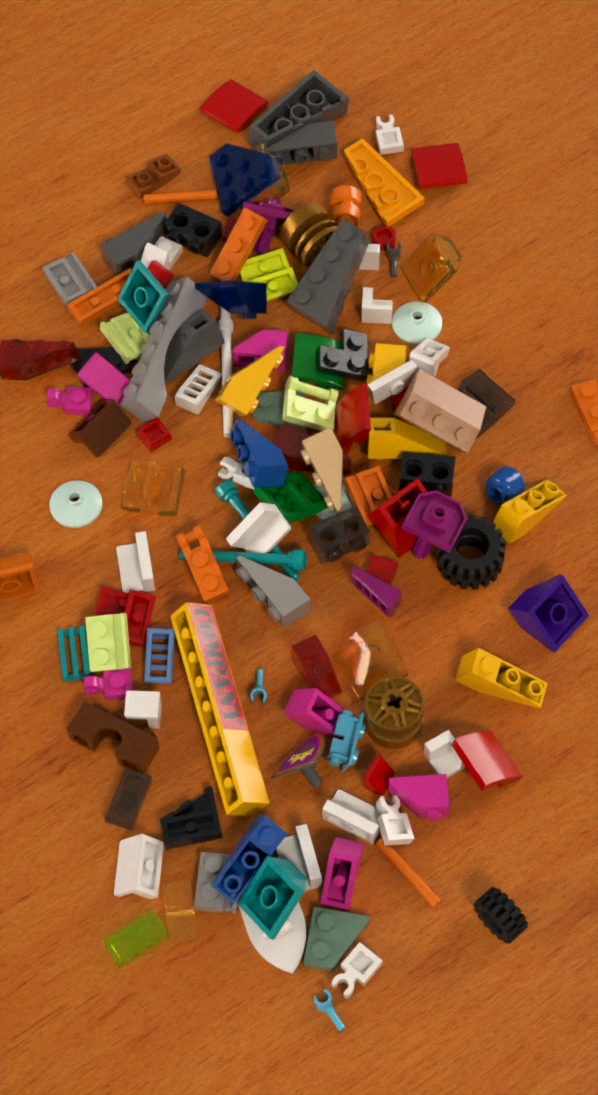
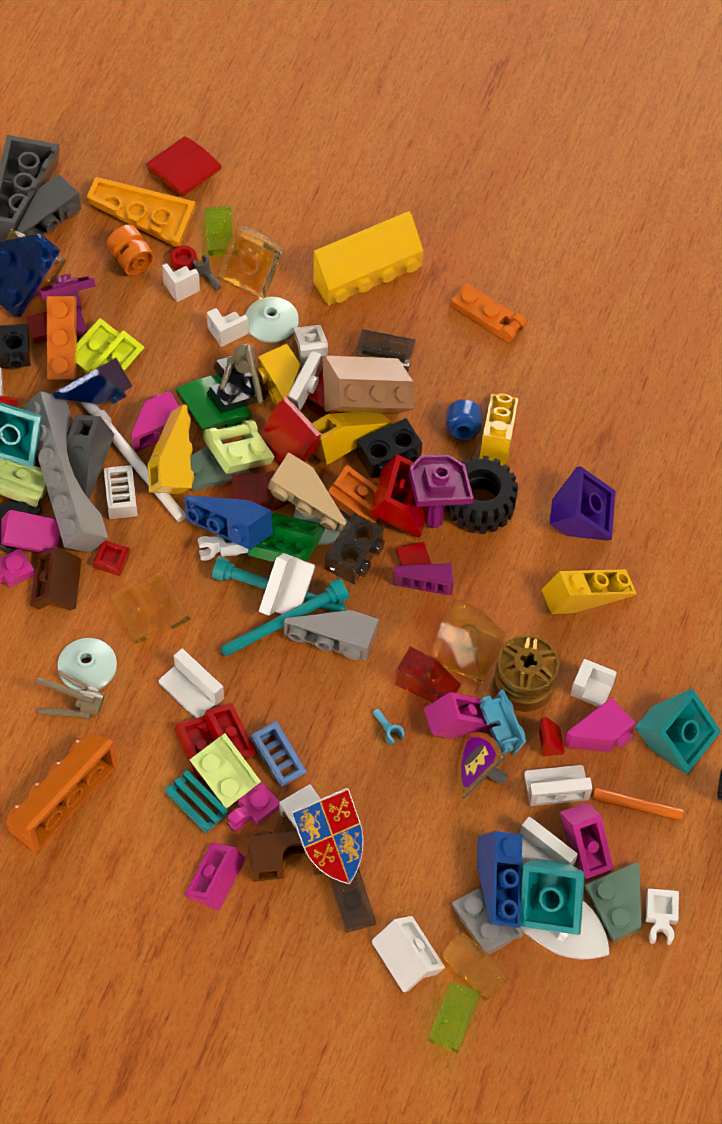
camera: 40 degrees left, 0 degrees up
(45, 717) = (215, 875): none -> dark pink slope
(52, 530) = (88, 699): none -> dark tan plant
(138, 737) = (331, 835): none -> shield
(192, 822) = (425, 881): black wing -> none
(203, 564) = (255, 647): orange plate -> none
(219, 710) = (372, 766): yellow brick -> none
(308, 231) = (124, 289): pearl gold wheel -> none
(327, 1007) = (662, 963): medium azure hand -> none
(330, 277) = (172, 323): dark grey wedge -> none
(360, 341) = (244, 361): none -> dark tan plant
(388, 136) = (116, 164): white plate -> none
(393, 825) = (598, 768): white plate -> none
(432, 222) = (218, 229): none -> clear neon green plate
(486, 759) = (632, 665): slope -> none
(486, 836) = (679, 730): none -> teal slope
(524, 314) = (367, 259): none -> yellow slope

